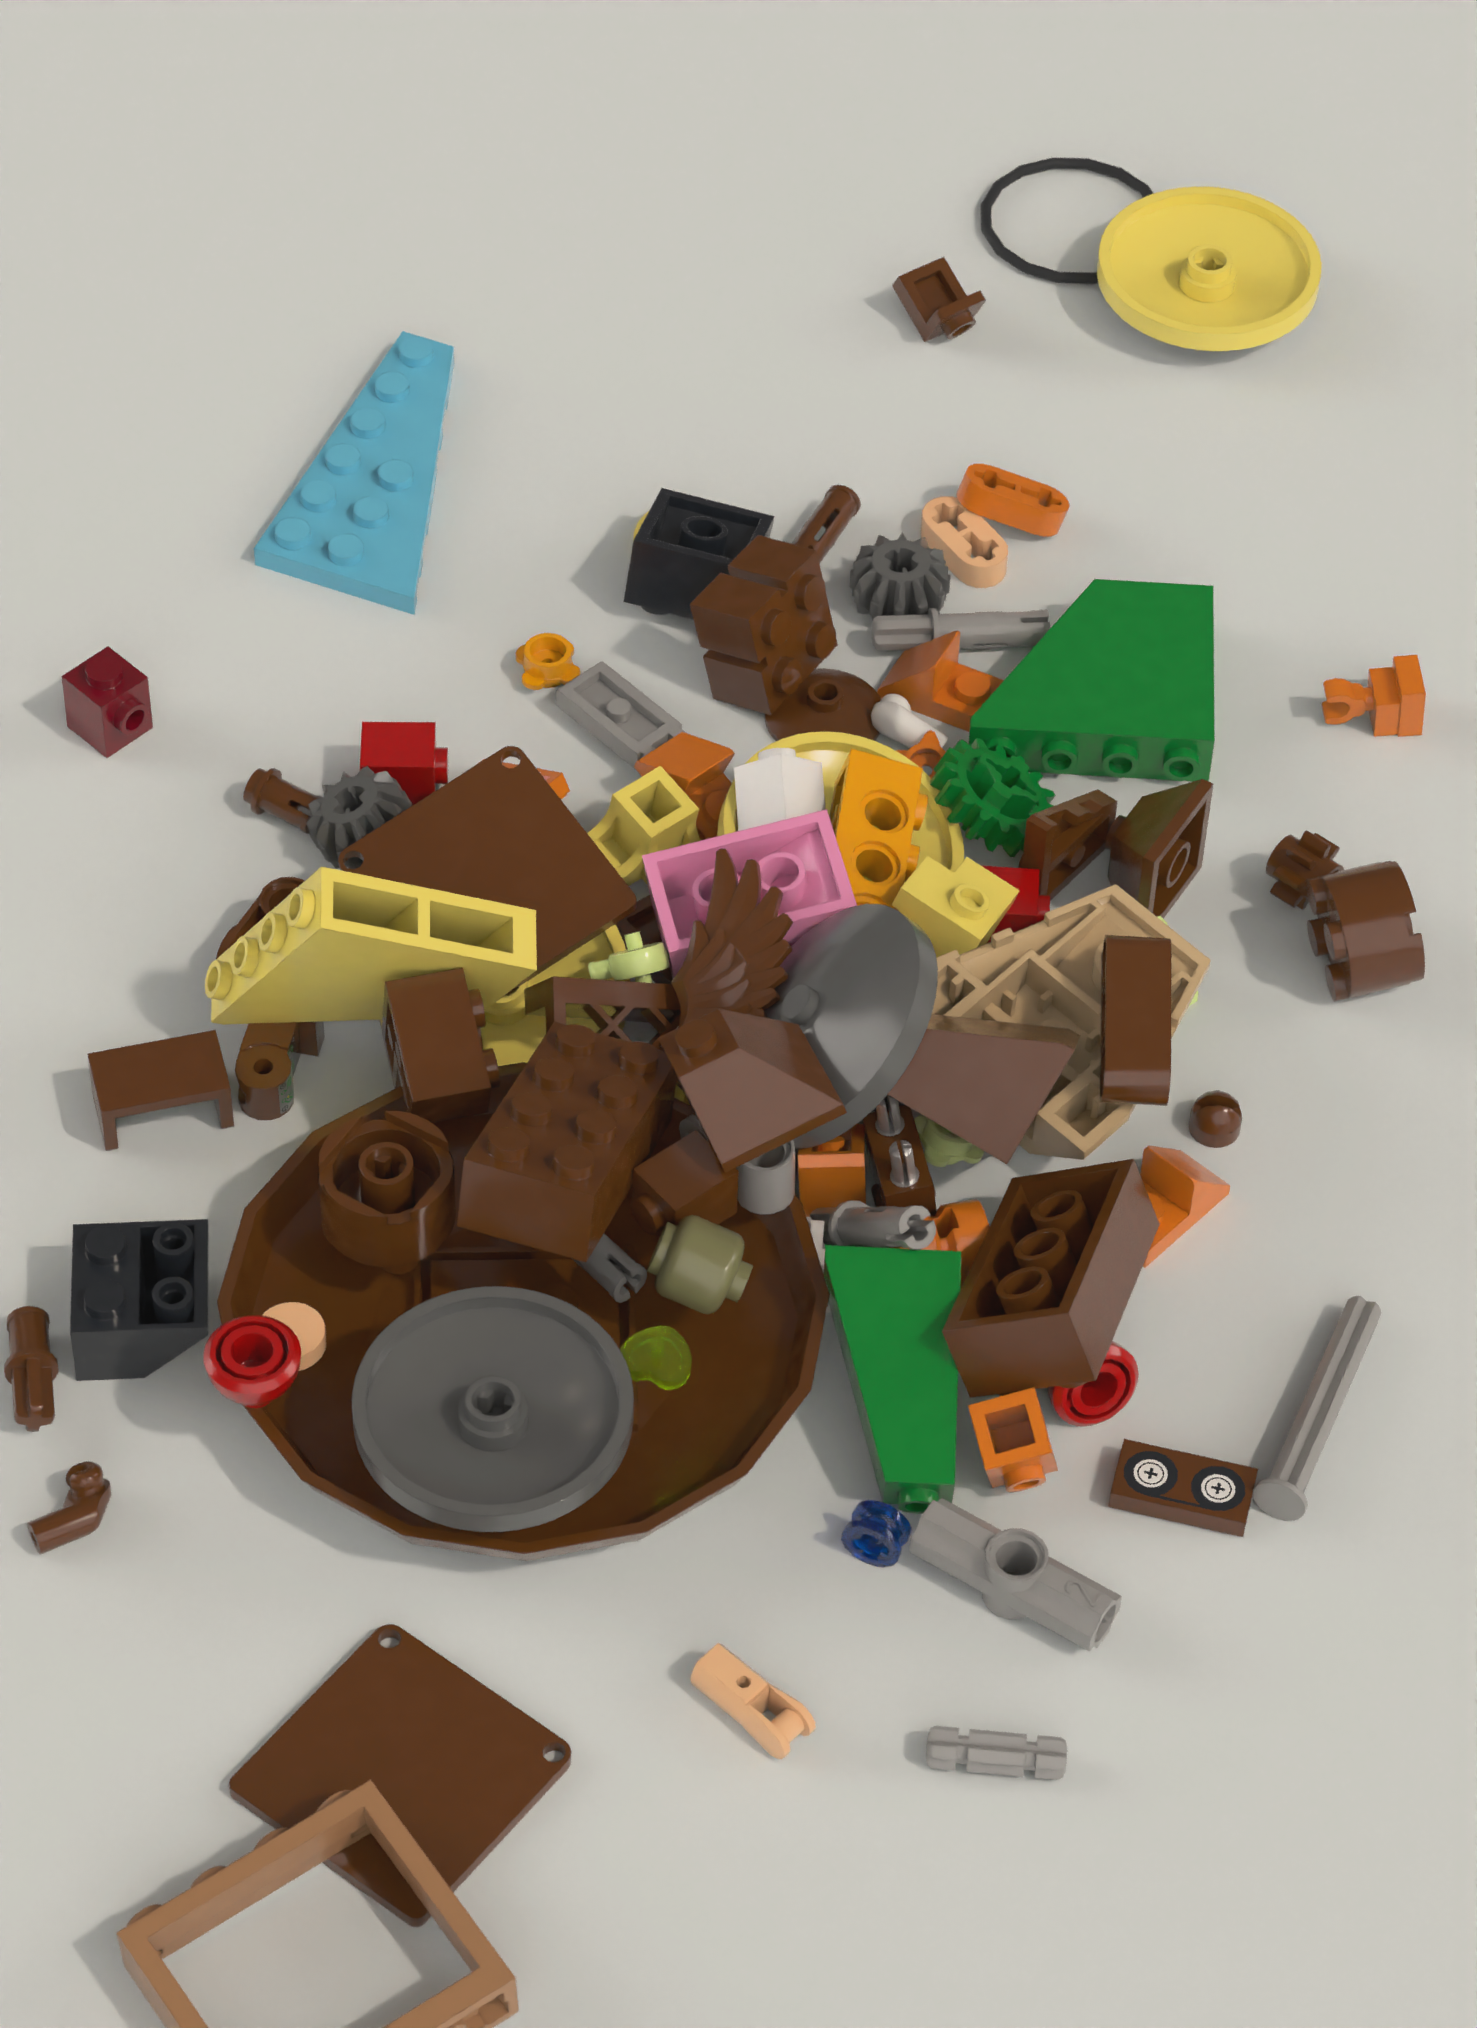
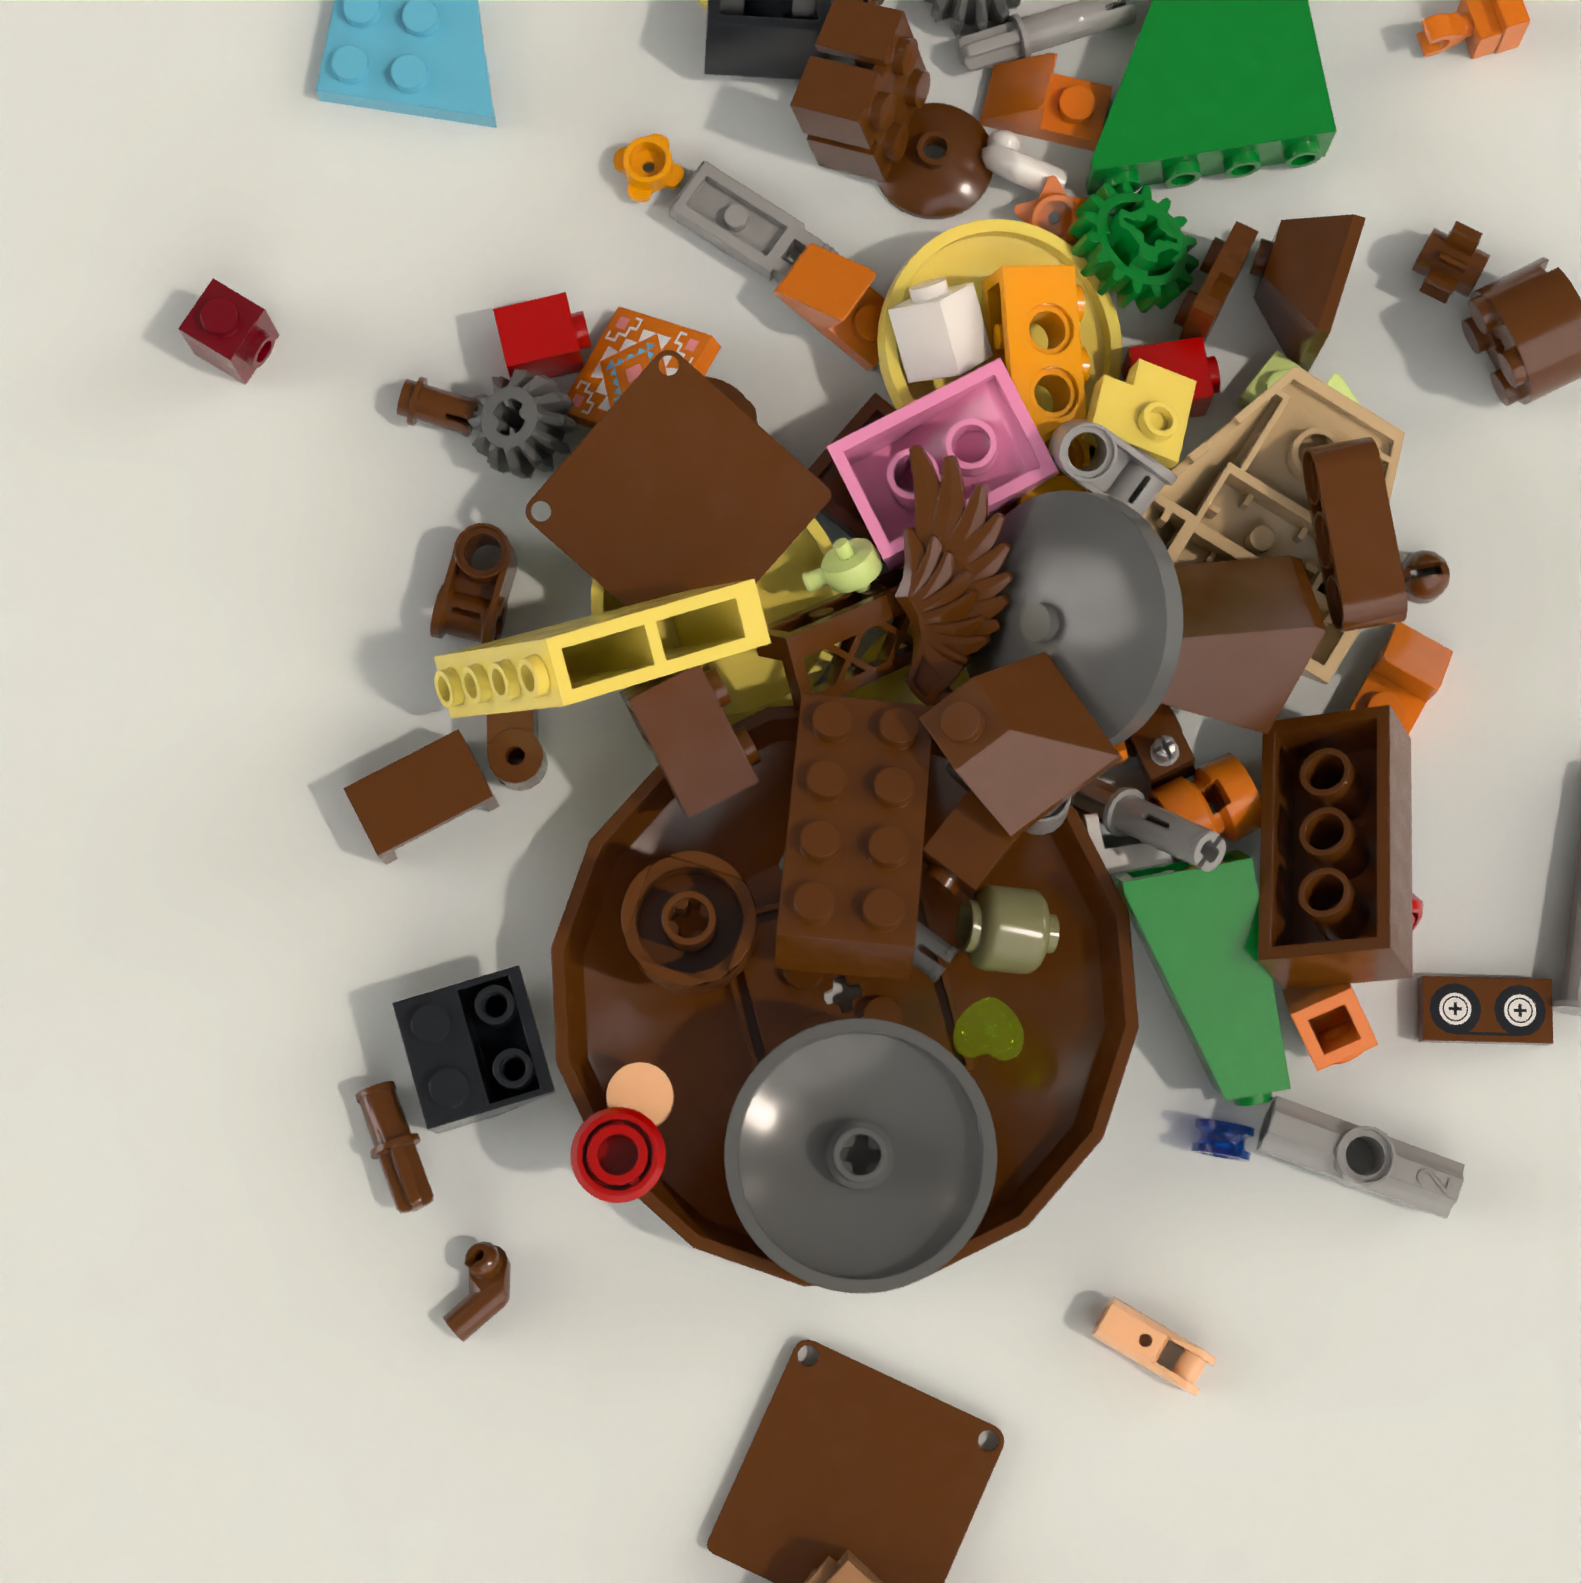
camera: 10 degrees left, 30 degrees up
(643, 820) = (809, 374): light yellow brick -> none
(917, 900) = (1117, 468): none -> light grey piece
(996, 1752) = (1382, 1344): light grey axle -> none

